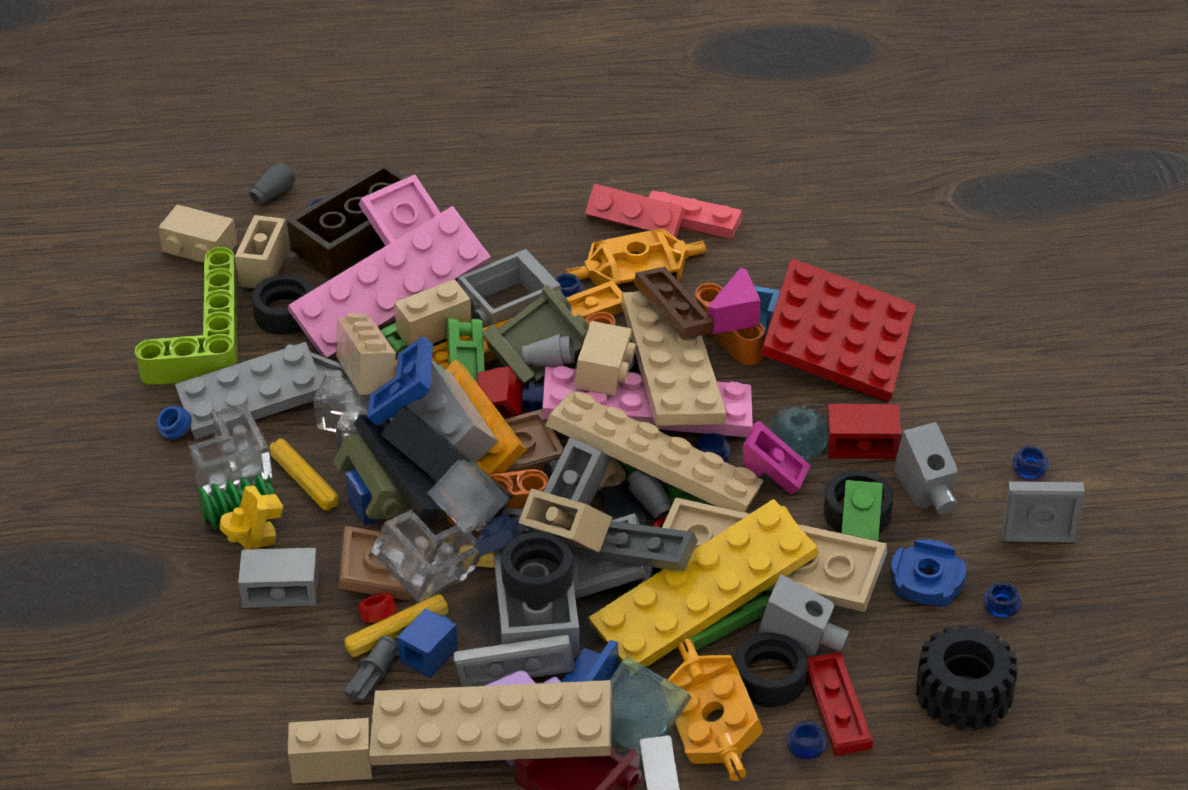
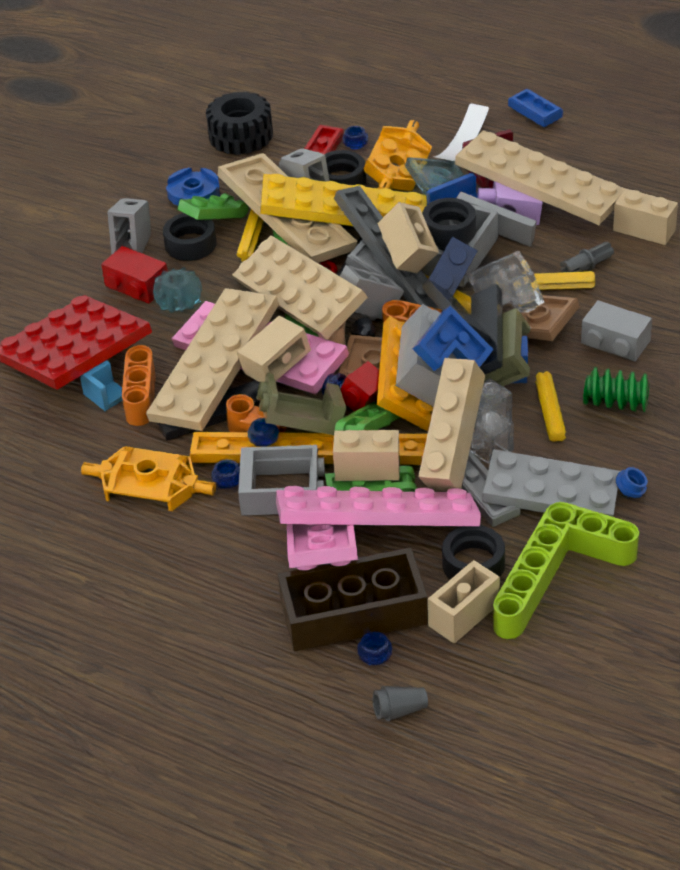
camera: 145 degrees left, 0 degrees up
(194, 232) = (509, 664): tan brick -> none
(234, 451) = (601, 417): clear brick -> none
(248, 523) = (620, 357): yellow hips -> none
(377, 607) = (559, 286): red tile -> none
(427, 643) = (542, 253): blue brick -> none
(468, 496) = (458, 280): clear piece -> none
(550, 352) = (302, 386): light grey cone -> none
(633, 210) = (106, 517): coral plate -> none
(674, 302) = (180, 373): reddish brown plate -> none
(704, 216) = (59, 505): coral plate -> none
(736, 305) = (137, 355): dark pink slope -> none
(770, 455) = (220, 275): dark pink slope -> none
(1002, 600) = (168, 161): clear blue plate -> none
(1030, 462) = (54, 222): clear blue plate -> none
(1042, 511) = (96, 171): light grey tile -> none

